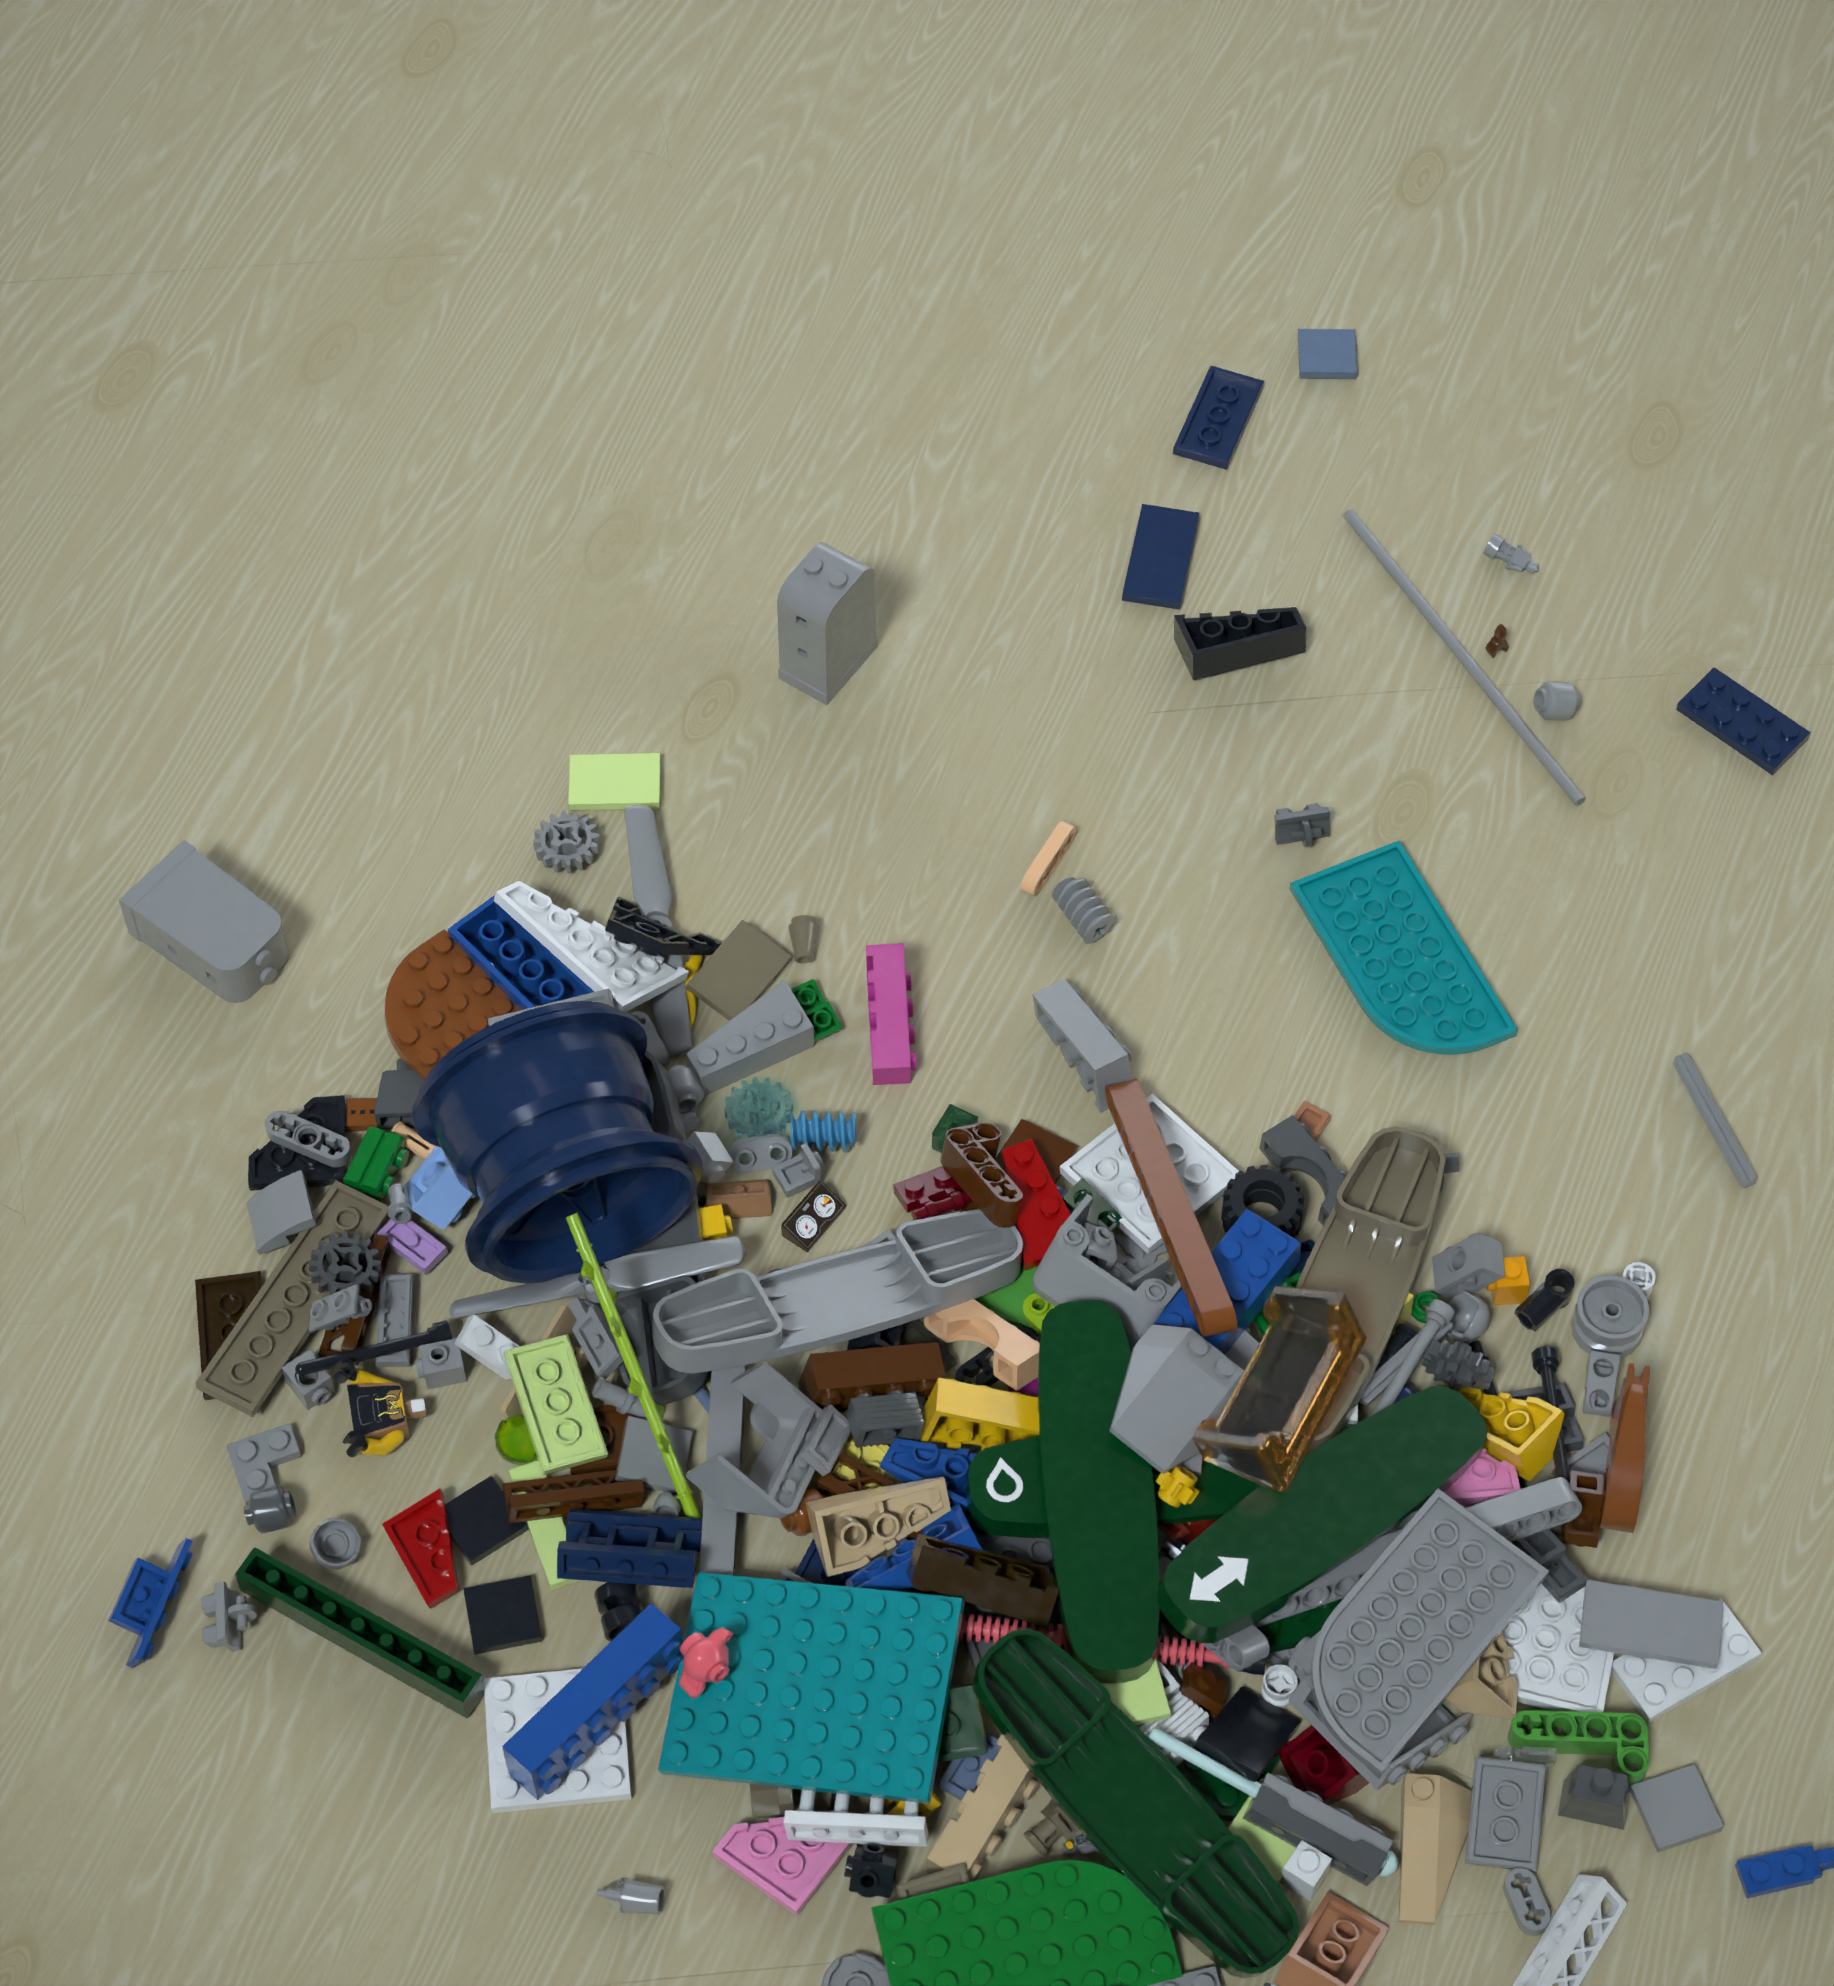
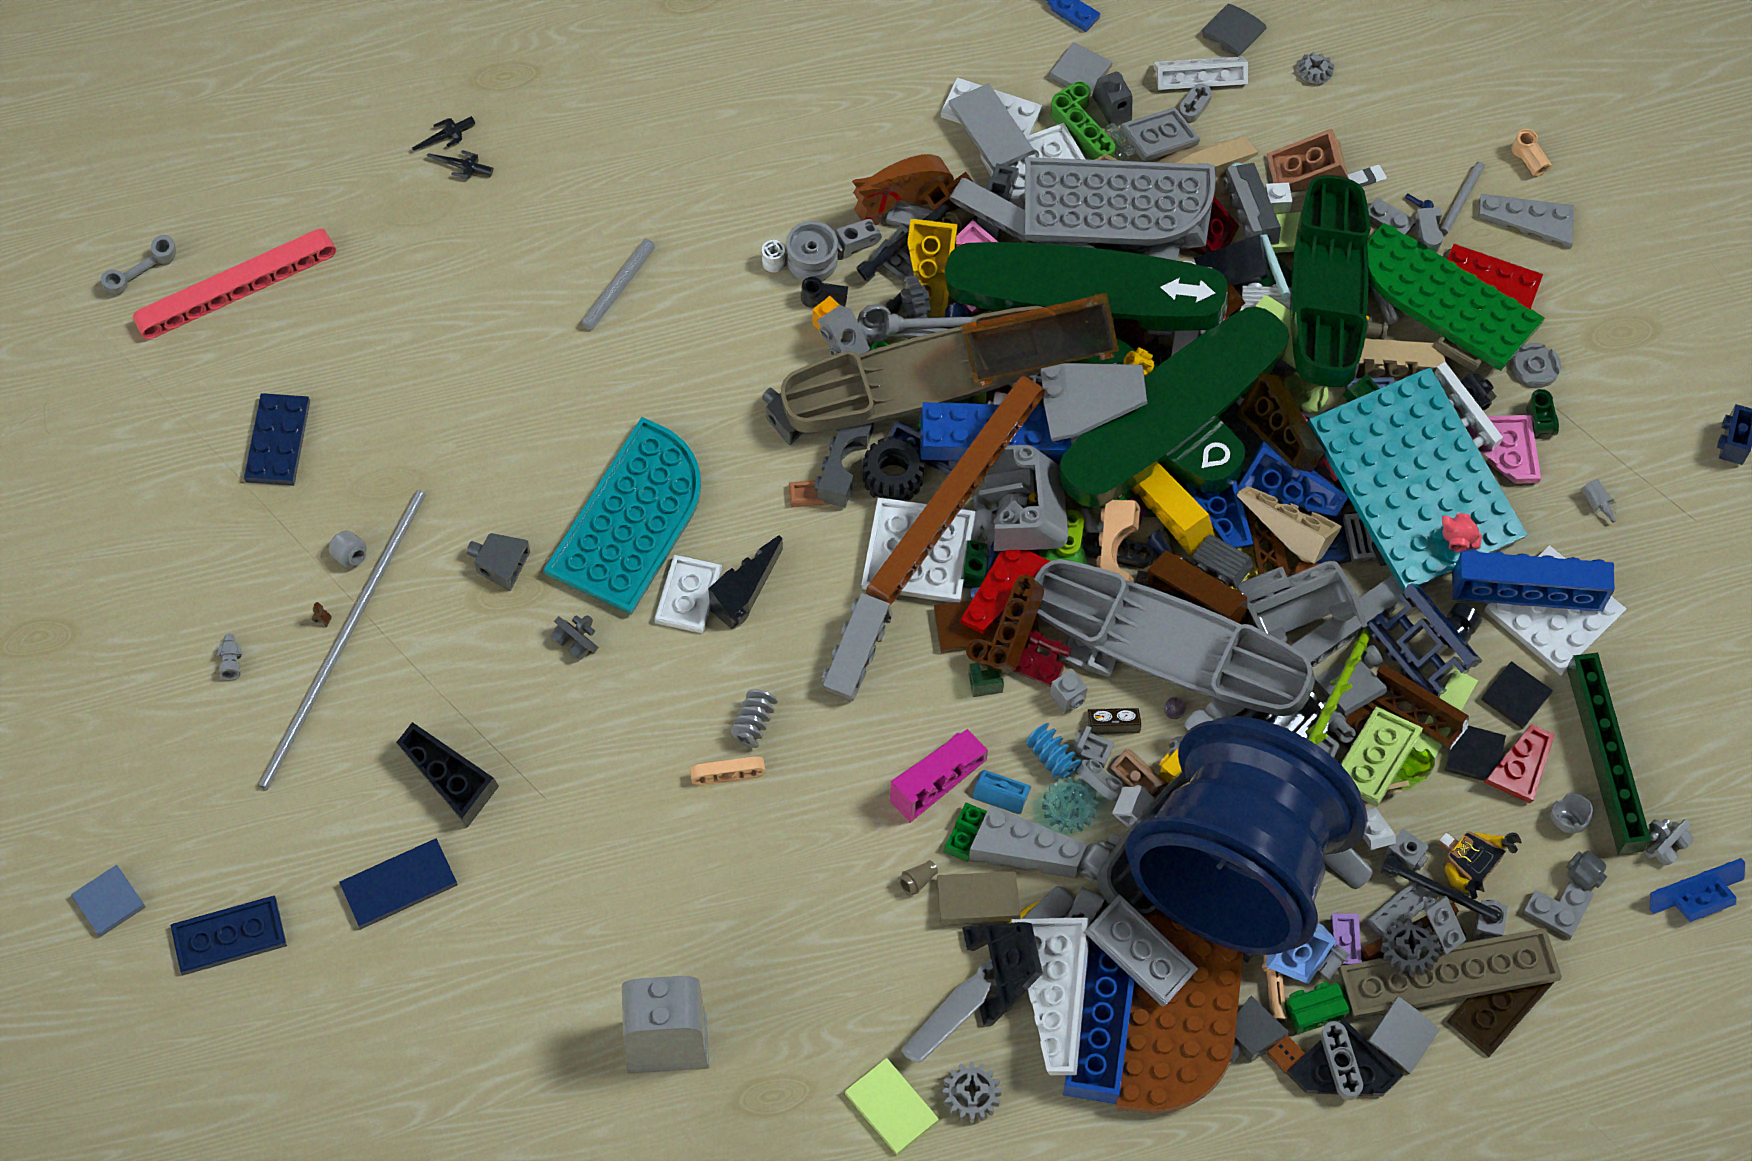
camera: 130 degrees left, 5 degrees up
(782, 1923) = (1543, 417): none -> dark green piece
(829, 1071) = (1001, 791): none -> dark azure slope
(874, 1191) = (1068, 691): none -> light grey brick
(1228, 980) = (737, 590): none -> black wedge
(1273, 951) = (686, 594): none -> white tile
(1442, 814) = (500, 558): none -> dark grey torso

